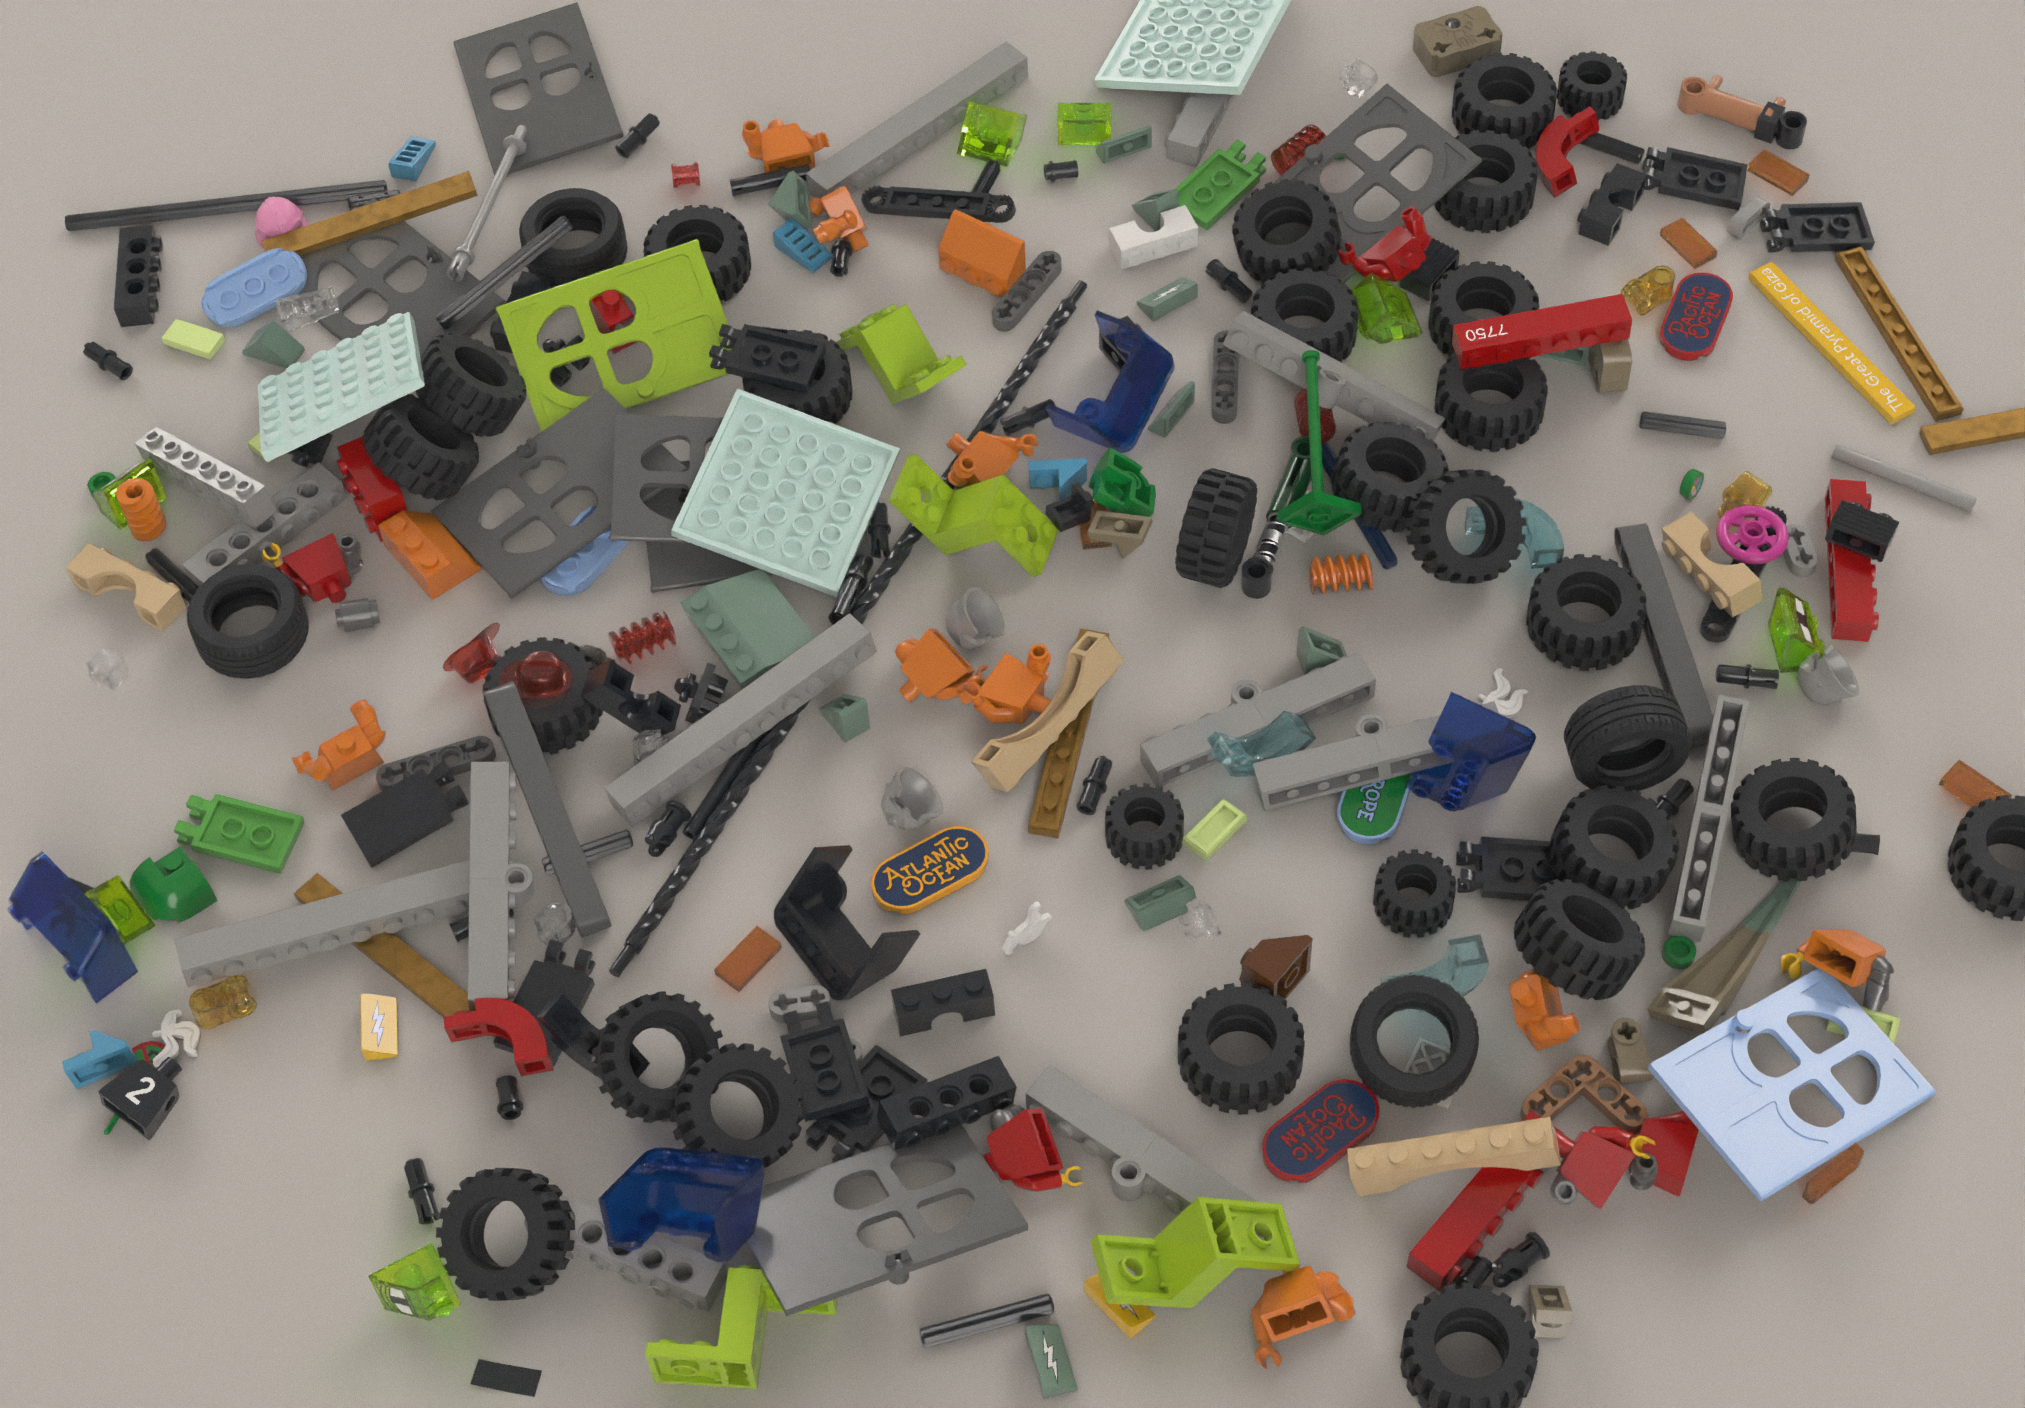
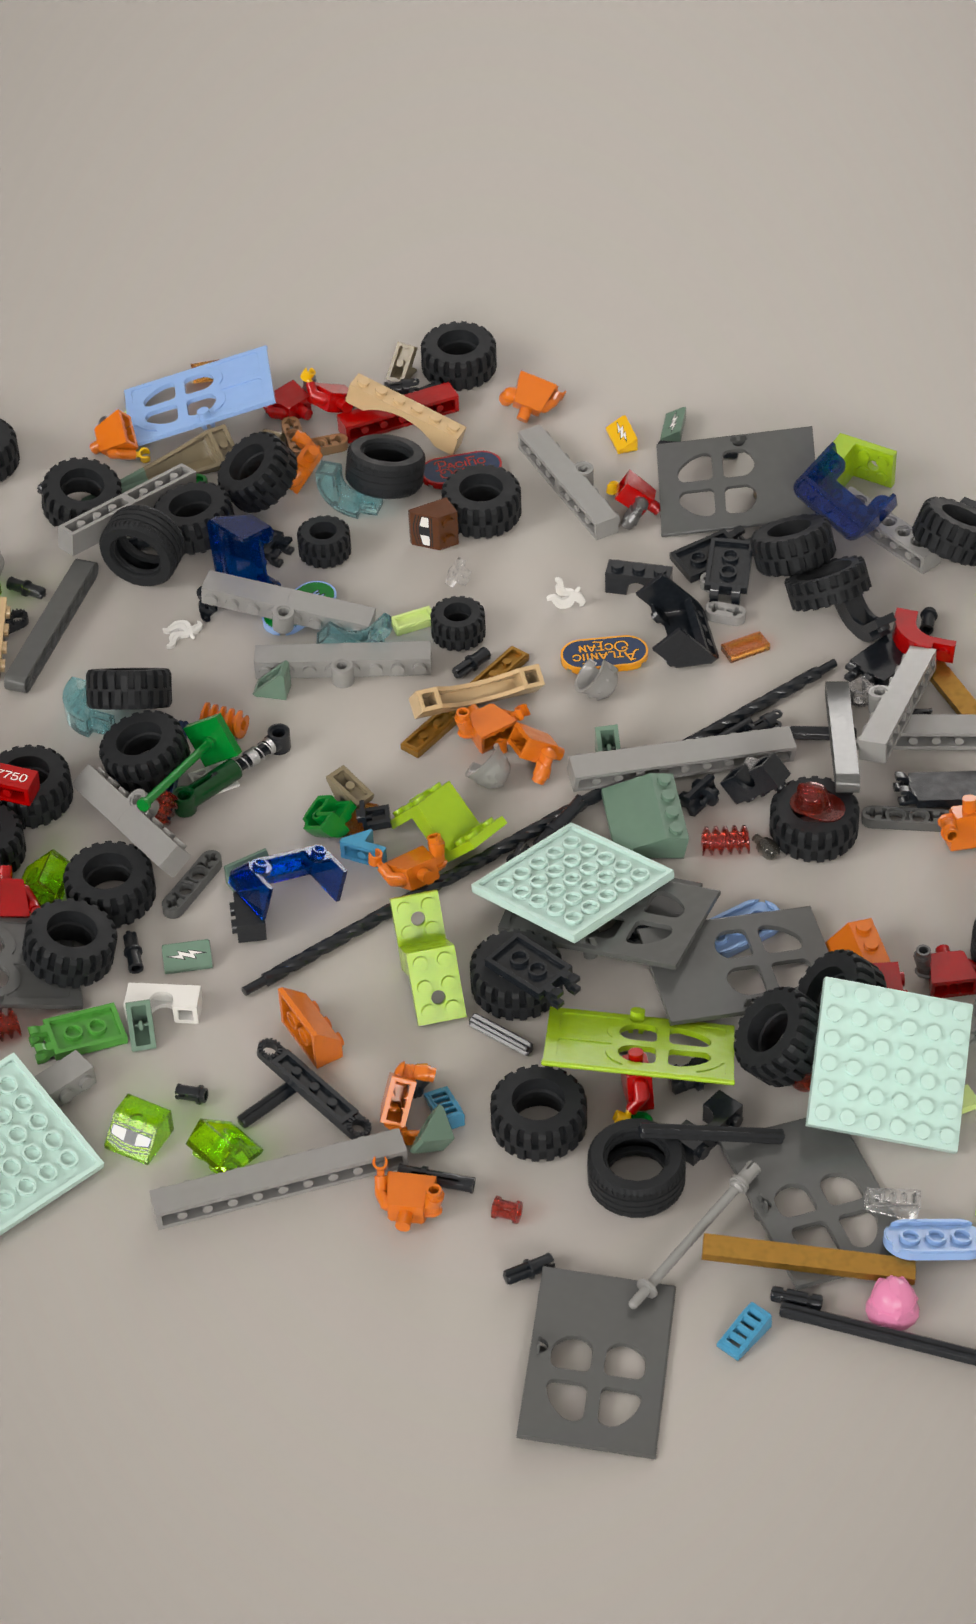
camera: 155 degrees left, 10 degrees down
(274, 346) = (937, 1184): sand green slope -> none
(357, 614) = (931, 932): dark grey brick -> none
(474, 657) = (853, 869): clear red piece -> none
(957, 1089) = (665, 529): black brick -> none
(1024, 289) = (259, 1011): dark grey beam -> none
(1026, 417) = (355, 902): black axle -> none
(1125, 144) = (112, 1093): sand green slope -> none
(1161, 902) = (481, 593): sand green slope -> none
(1194, 1252) = (572, 416): lime bracket -> none
(1216, 527) = (291, 740): black tyre -> none
(1591, 582) = (86, 623): black tyre -> none

